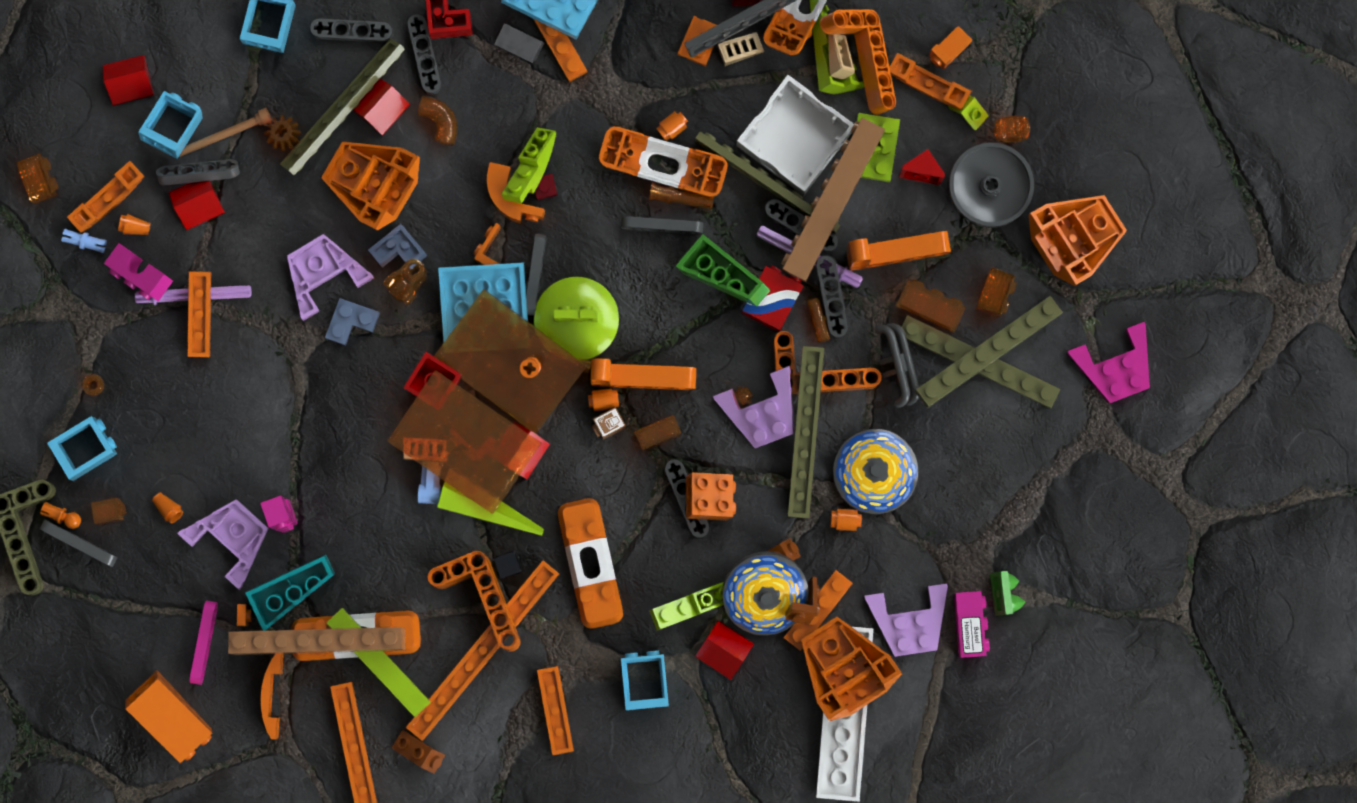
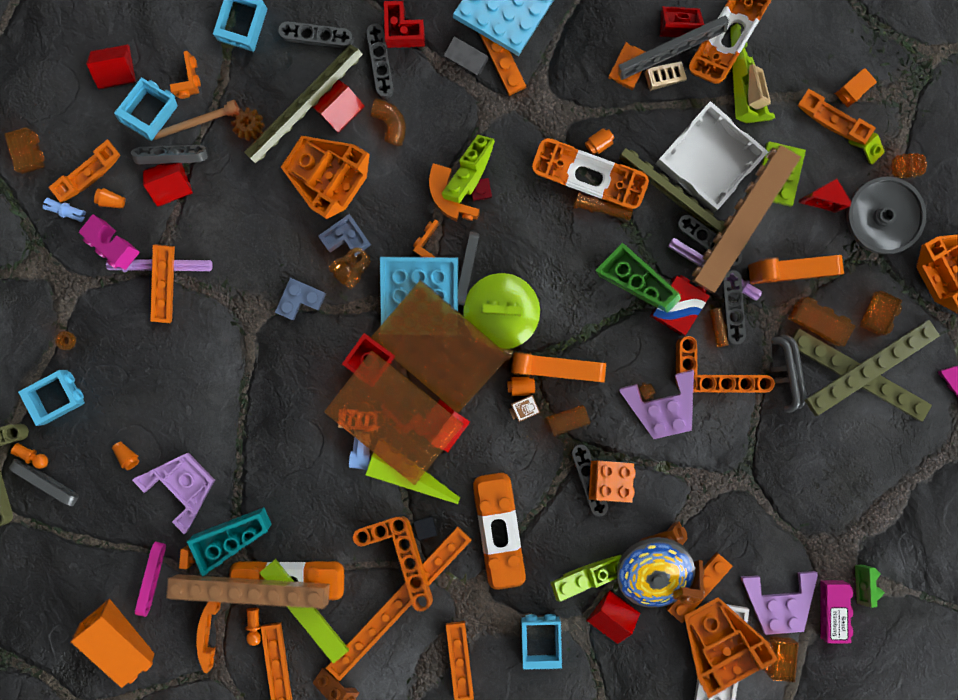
camera: 10 degrees right, 5 degrees up
(108, 511) = (71, 455): clear orange brick -> none
(210, 100) = (187, 88): none -> orange bracket
(279, 514) = (221, 473): dark pink arch -> none
(317, 264) = (271, 245): lavender wing -> none
(323, 699) = (254, 636): none -> orange pin
(525, 371) = (452, 356): orange bush -> none
(662, 225) = (584, 232): dark grey beam -> none
(805, 431) = (703, 428): olive plate -> none
(846, 519) = (731, 509): orange brick -> none
(871, 53) = (786, 87): orange beam -> none
(875, 471) = (759, 467): dish -> none
(914, 681) = (786, 651): none -> clear orange brick

